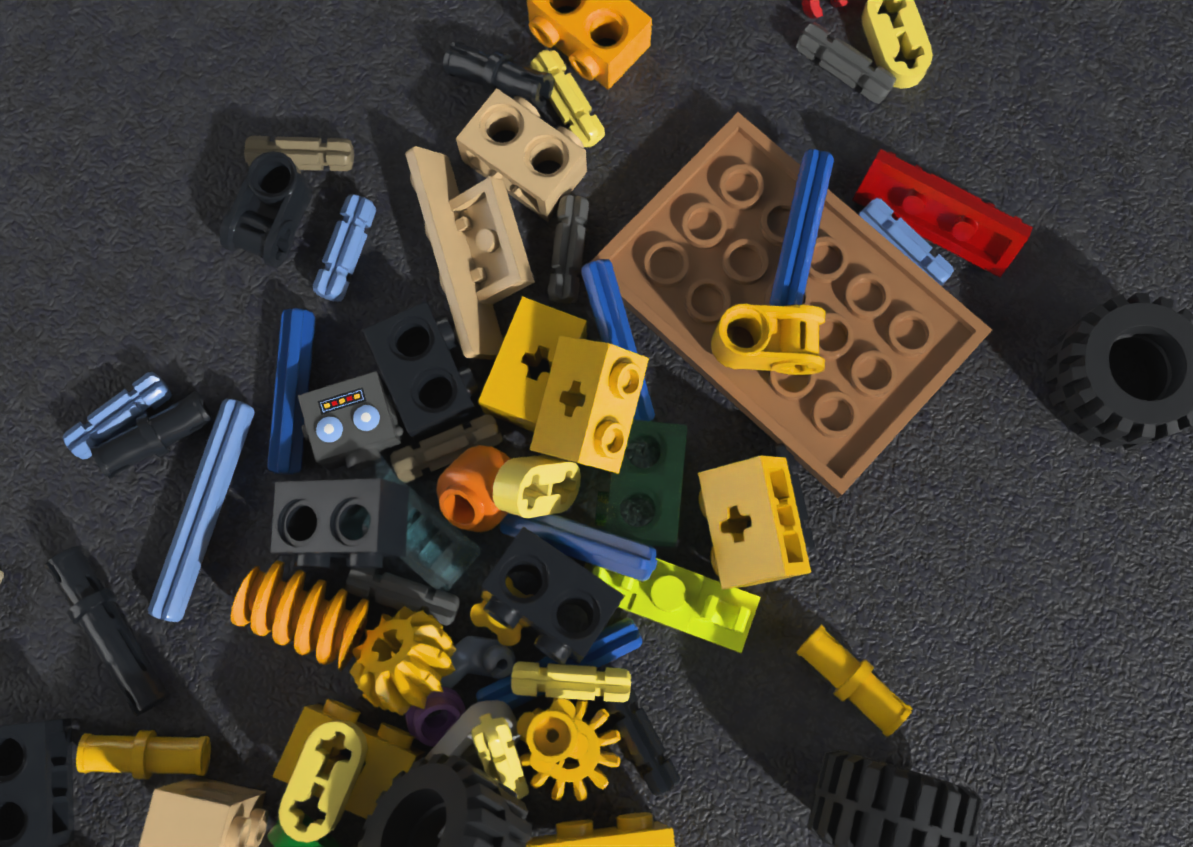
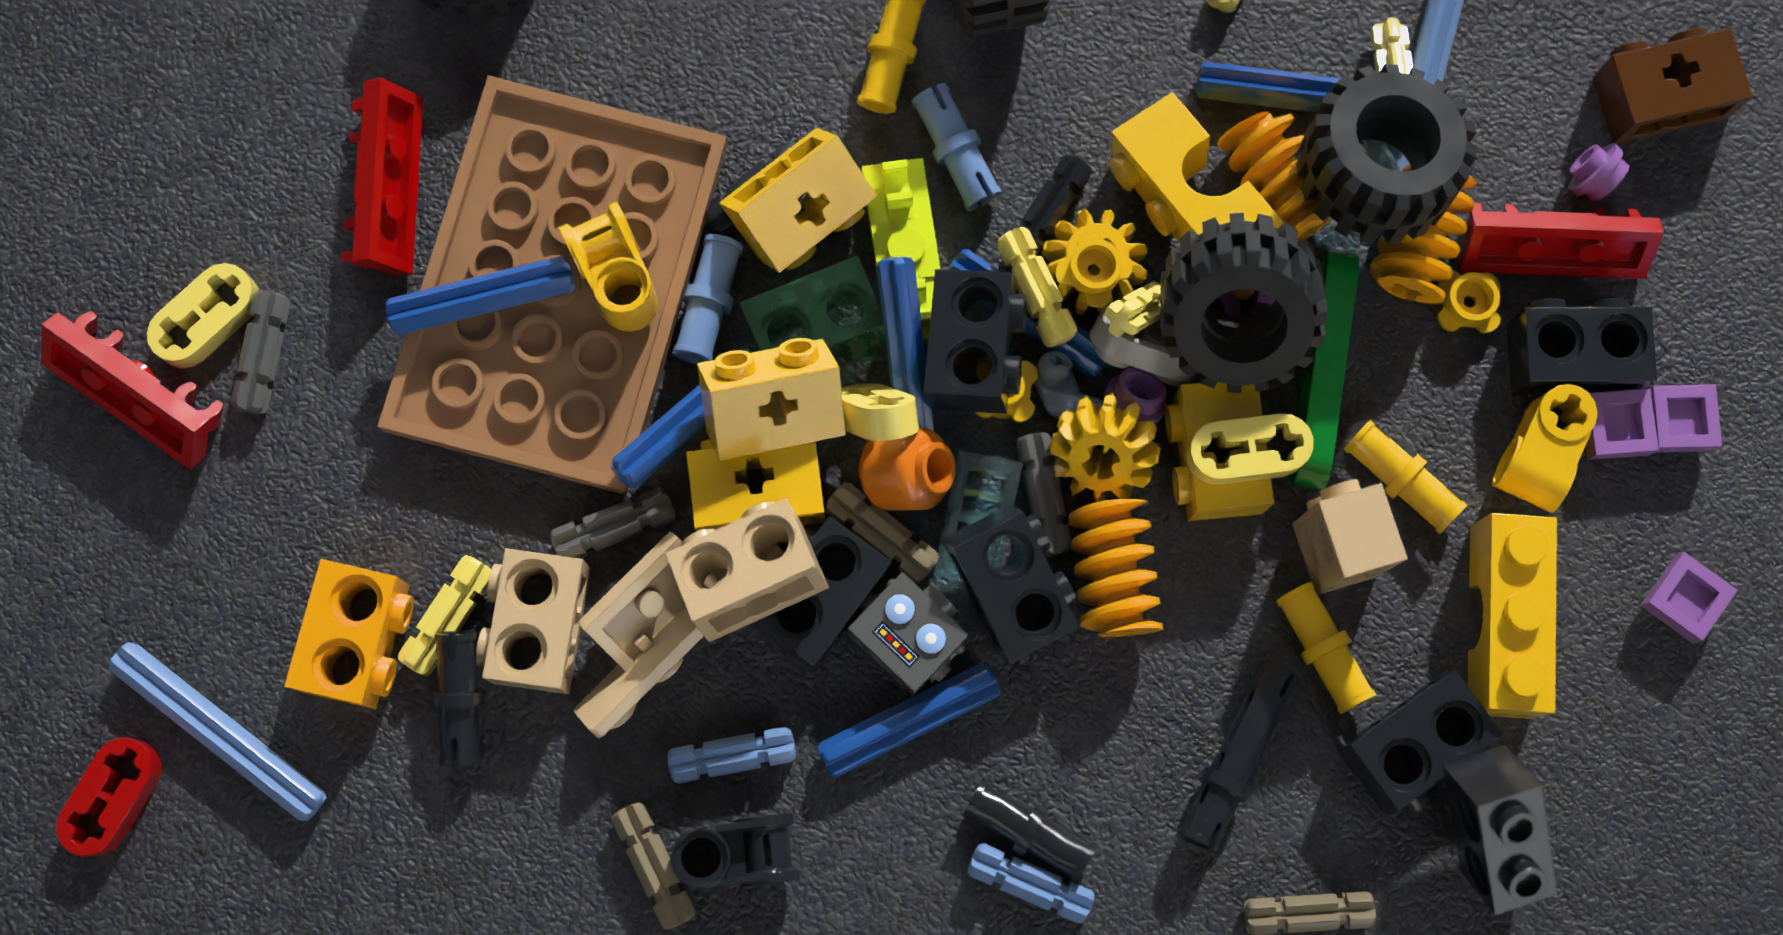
camera: 125 degrees left, 0 degrees up
(201, 511) = (1073, 738): medium blue axle -> none
(450, 308) = (751, 585): none -> tan brick
(710, 410) = (708, 299): none -> medium blue pin
(736, 687) = (956, 146): none -> medium blue pin
(906, 239) = (433, 200): medium blue axle -> none

